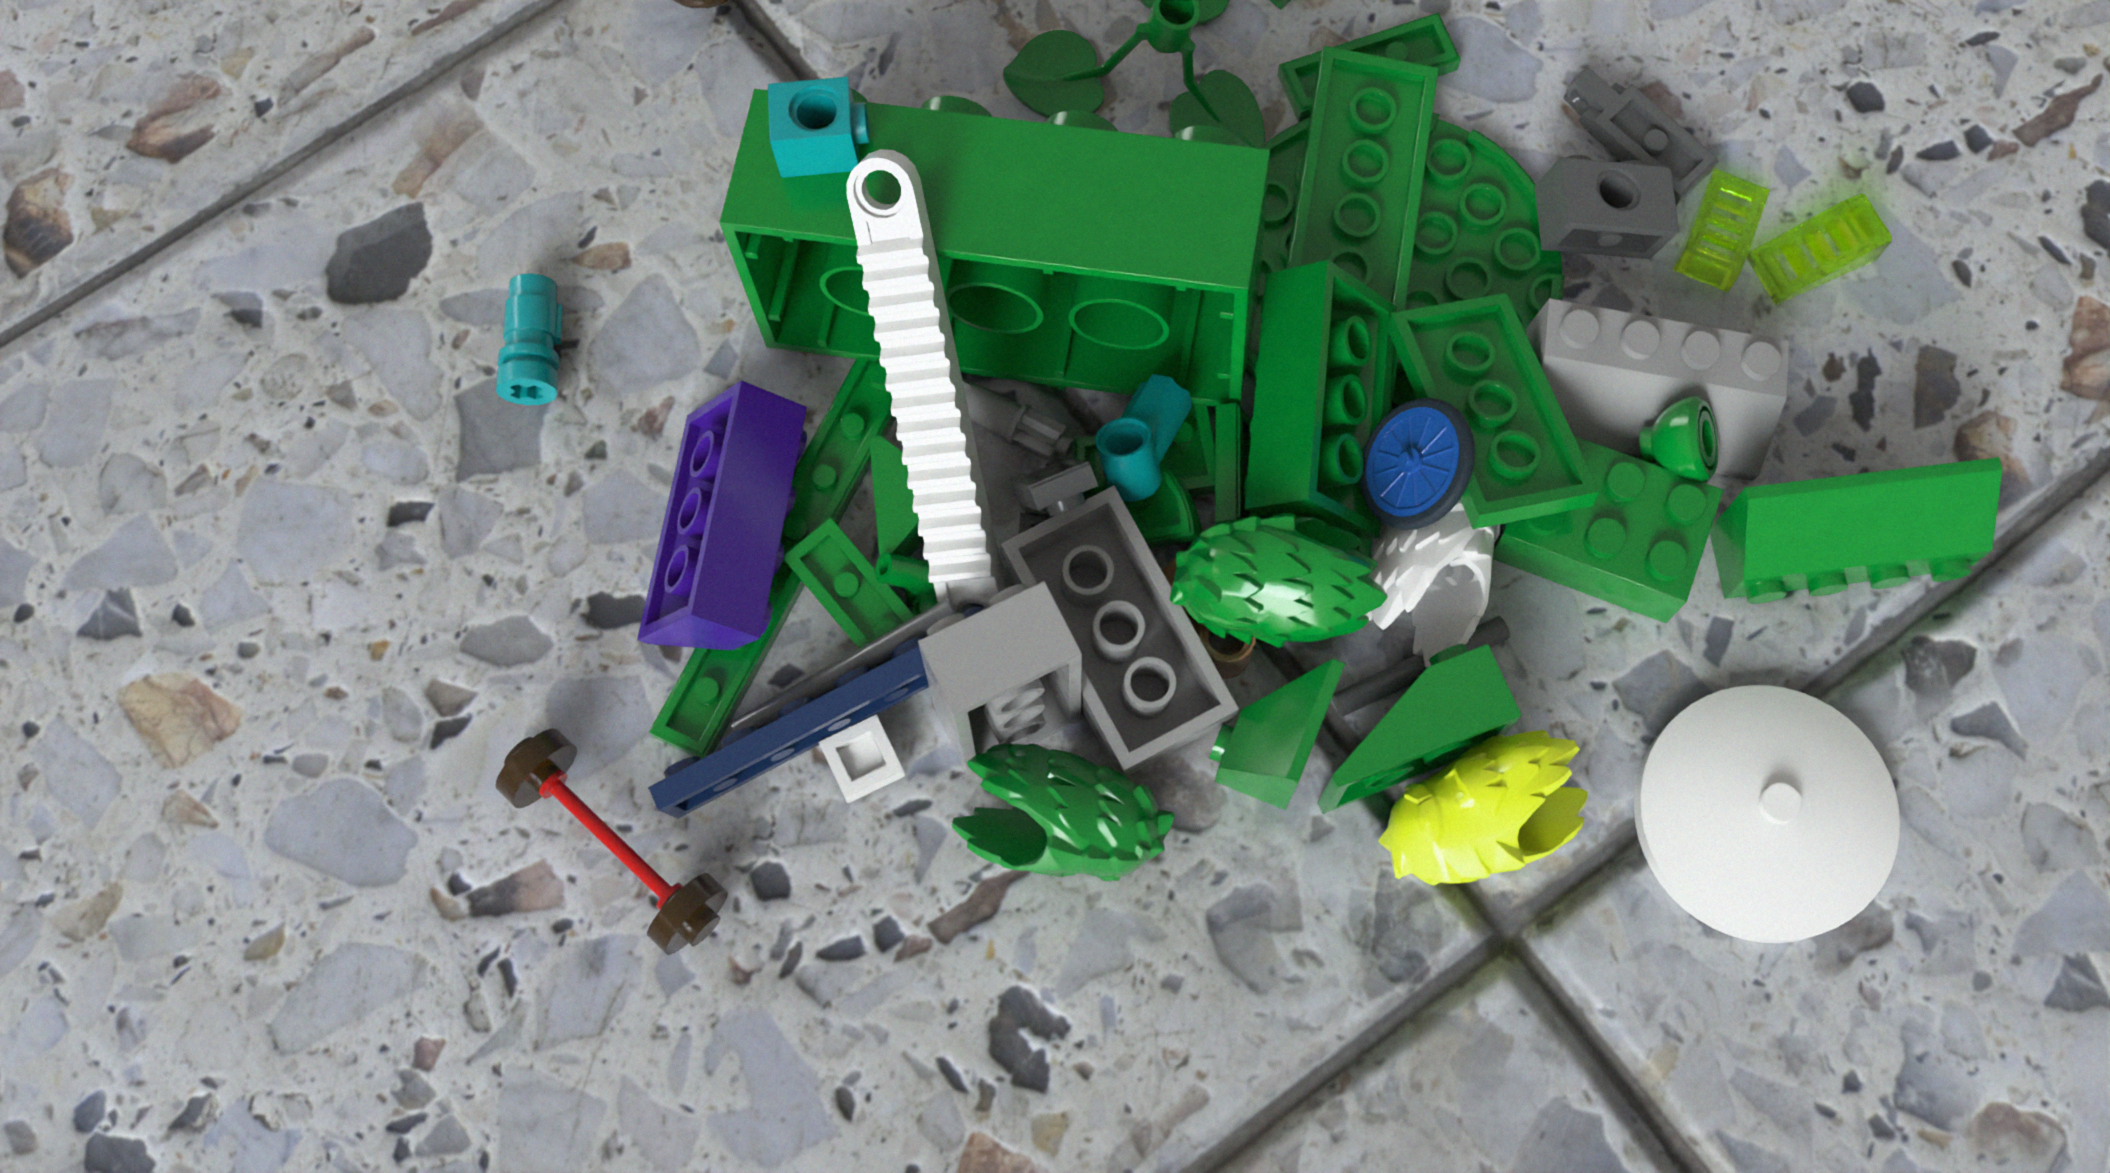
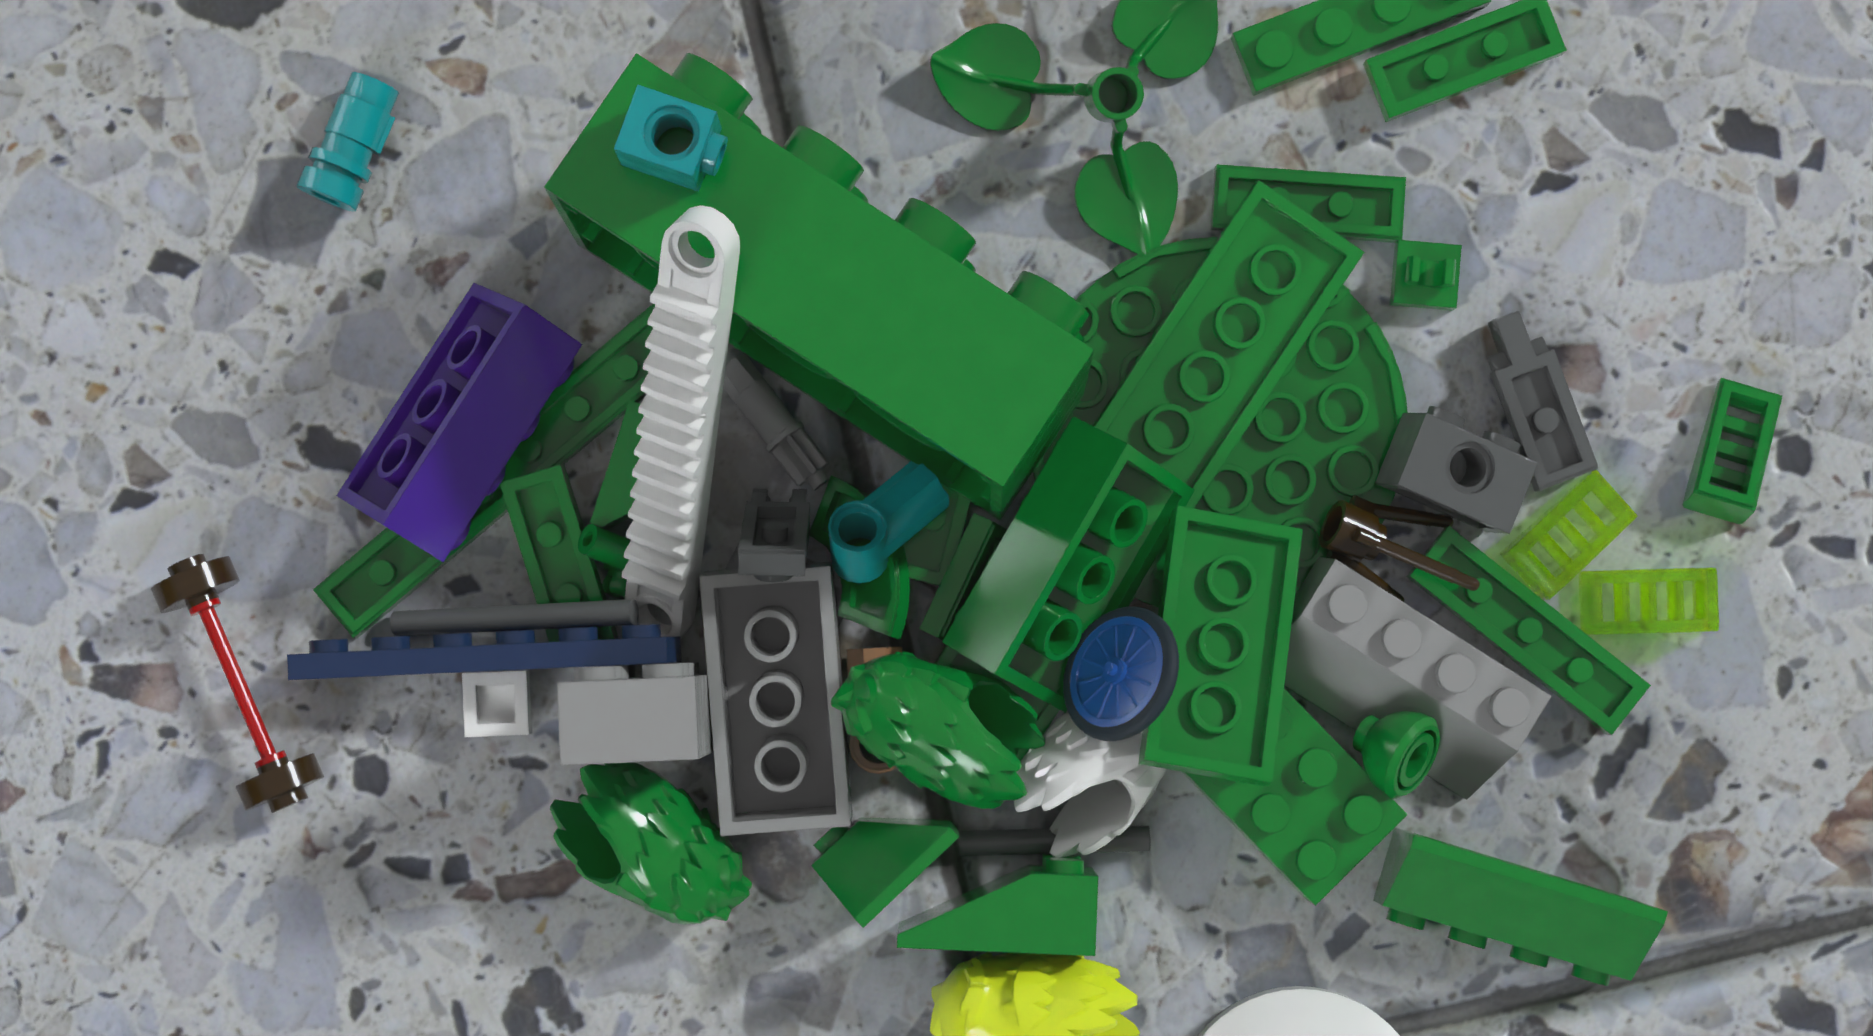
camera: 20 degrees right, 15 degrees up
(1494, 80) = (1425, 275): none -> green tile
(1562, 279) = (1354, 533): none -> dark brown plant
(1817, 330) = (1533, 634): none -> green plate
(1819, 145) = (1722, 502): none -> green slope

